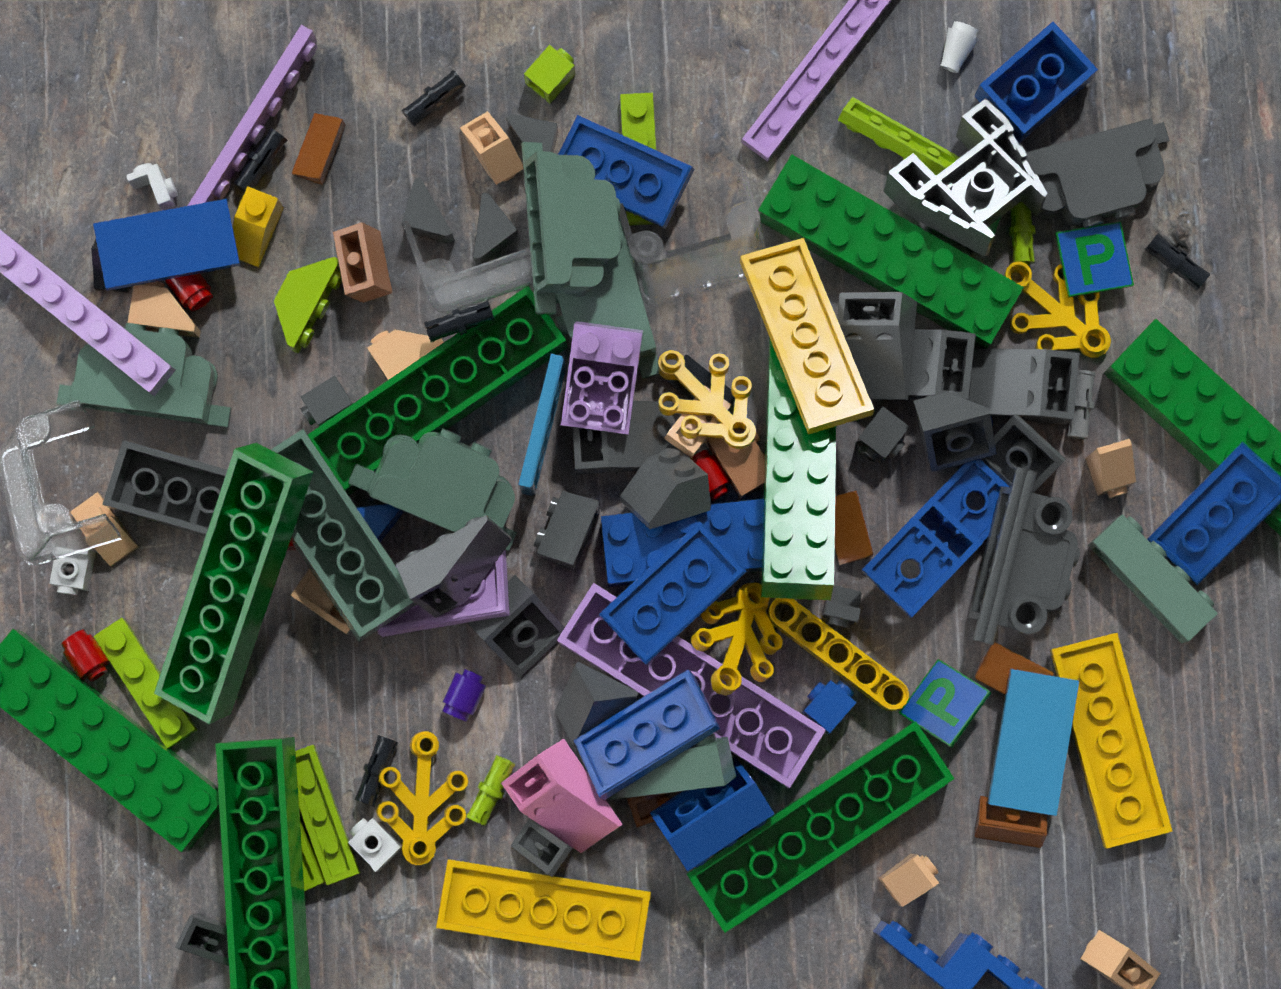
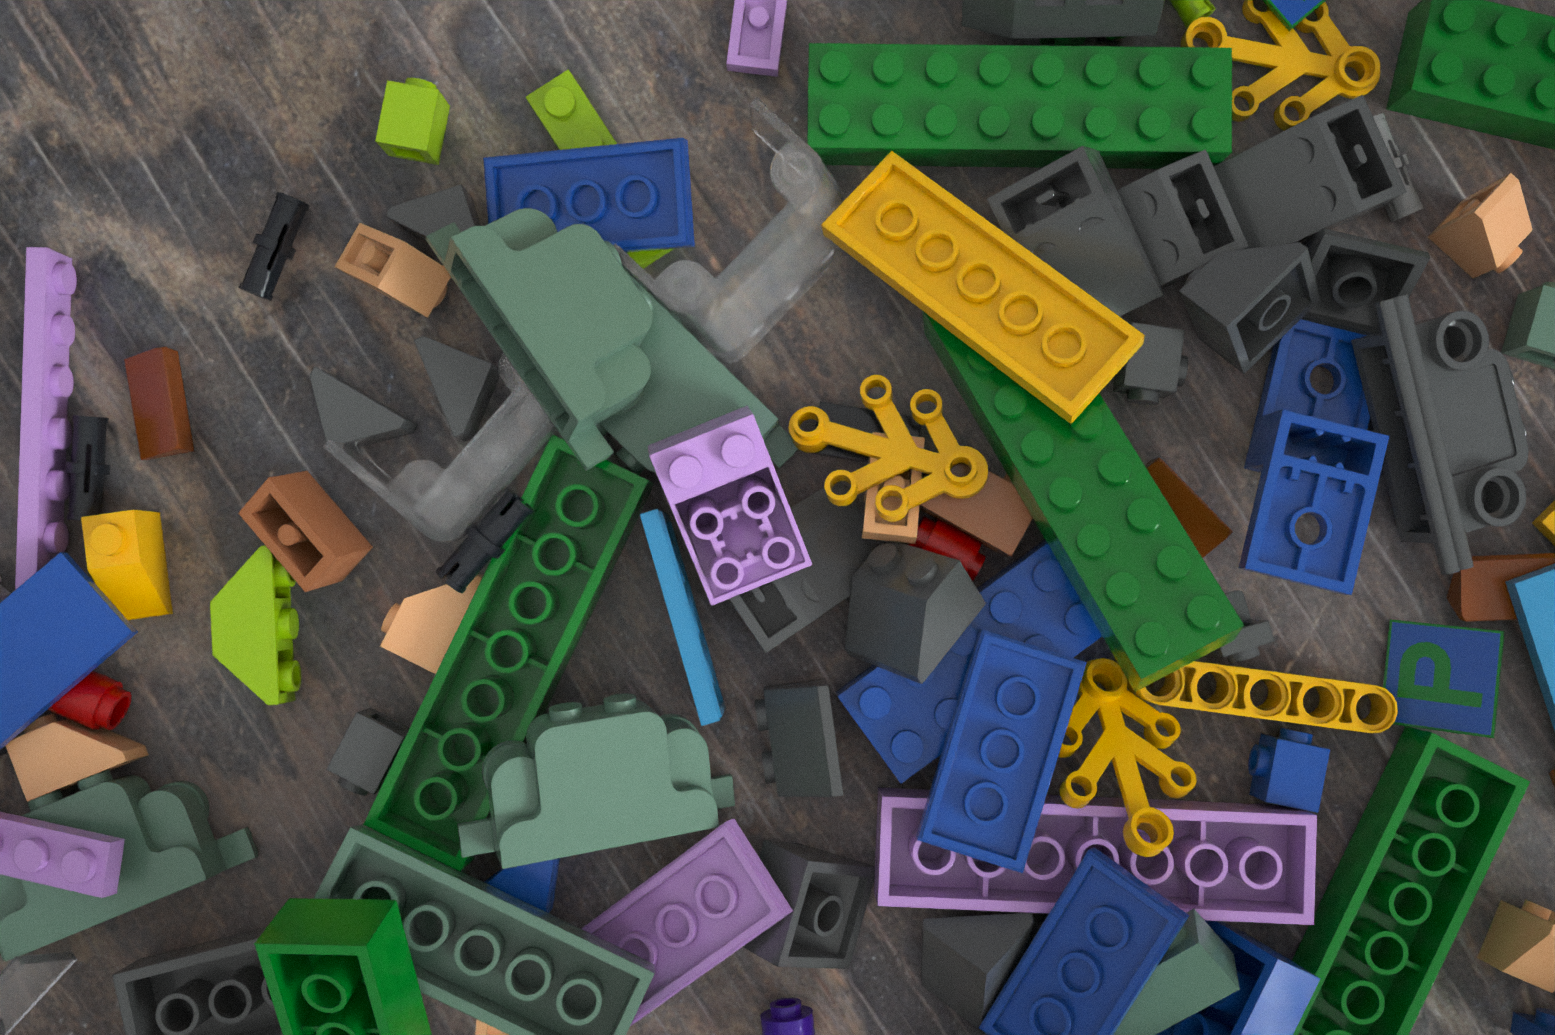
camera: 25 degrees left, 5 degrees up
(452, 566) = (675, 901): dark grey slope -> none

